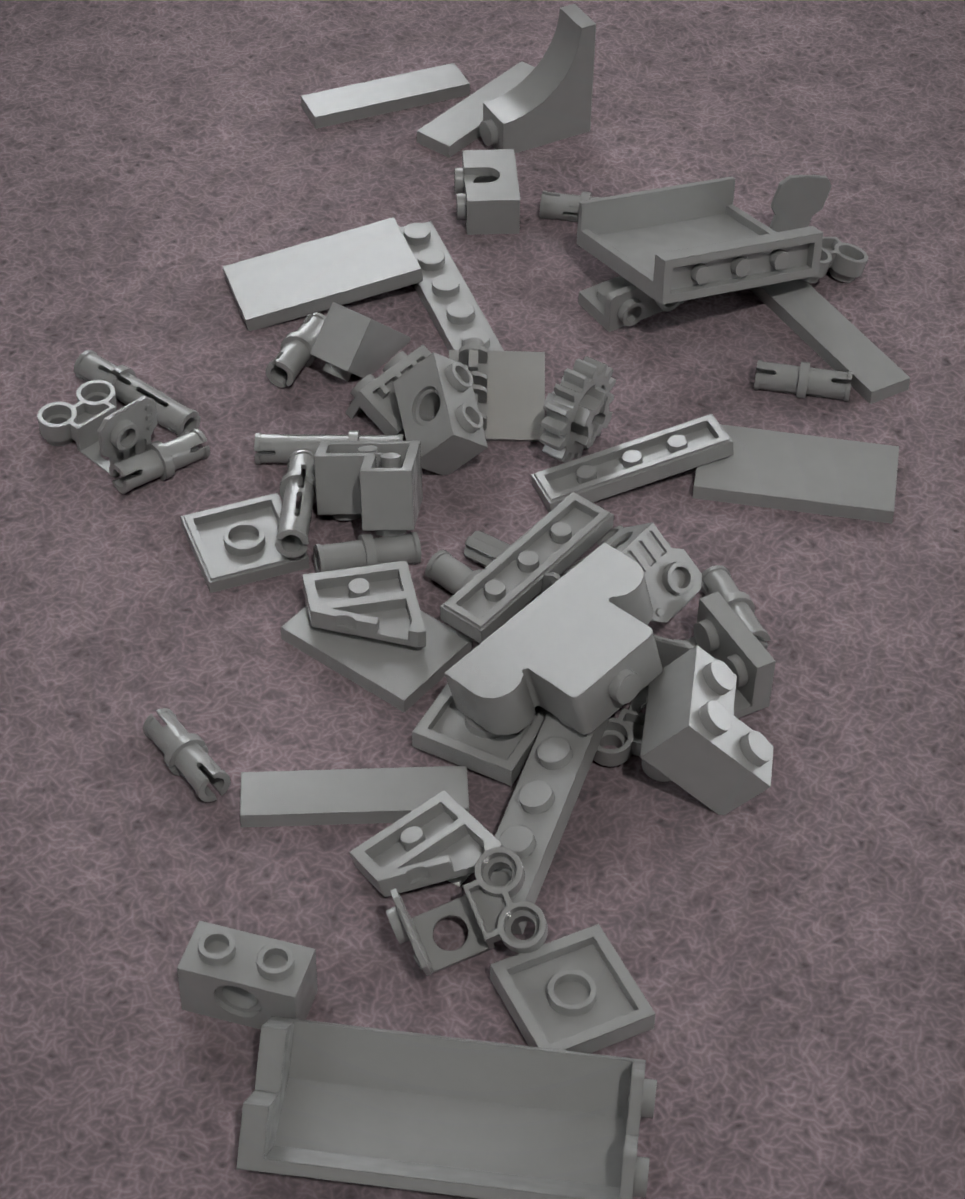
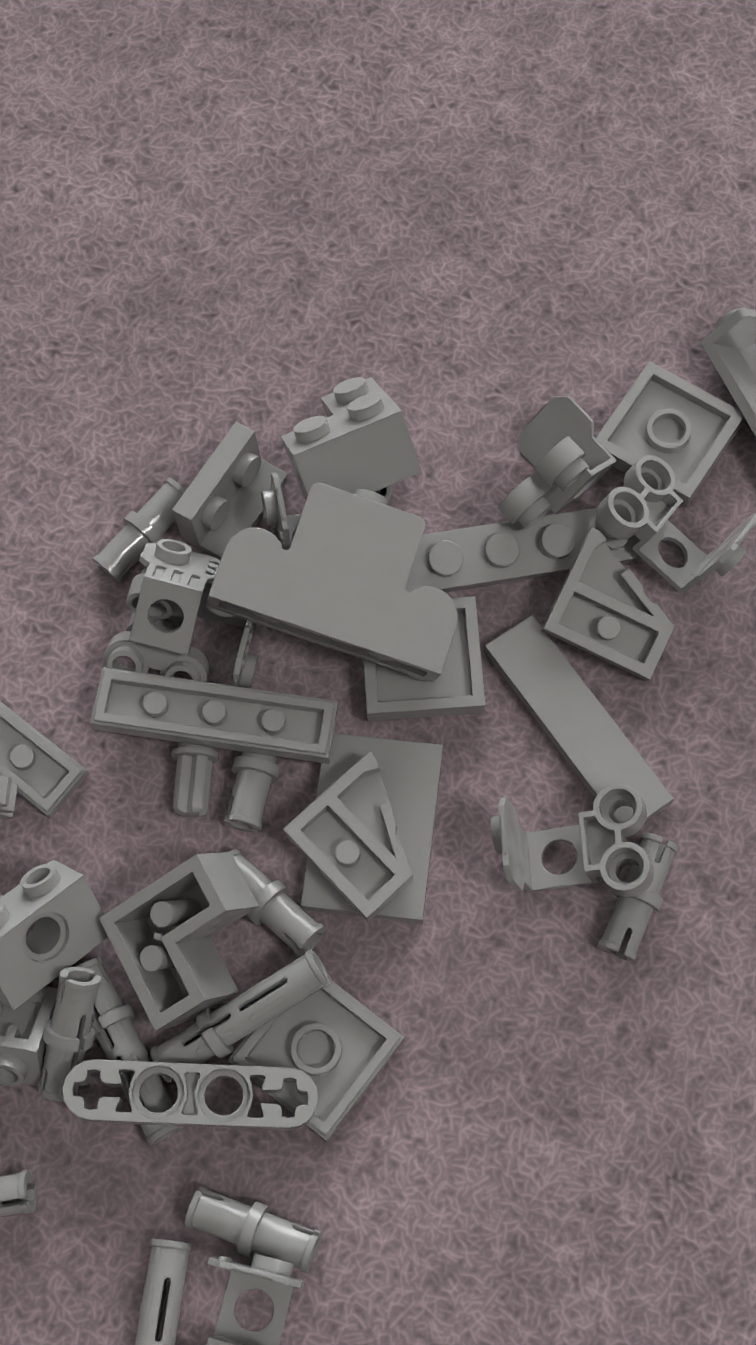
camera: 115 degrees left, 25 degrees up
(257, 446) = (192, 1084): none -> light grey beam
(281, 686) = (597, 841): none -> light grey piece
(360, 413) = (69, 1029): none -> light grey pin
(562, 820) = (565, 460): none -> light grey piece

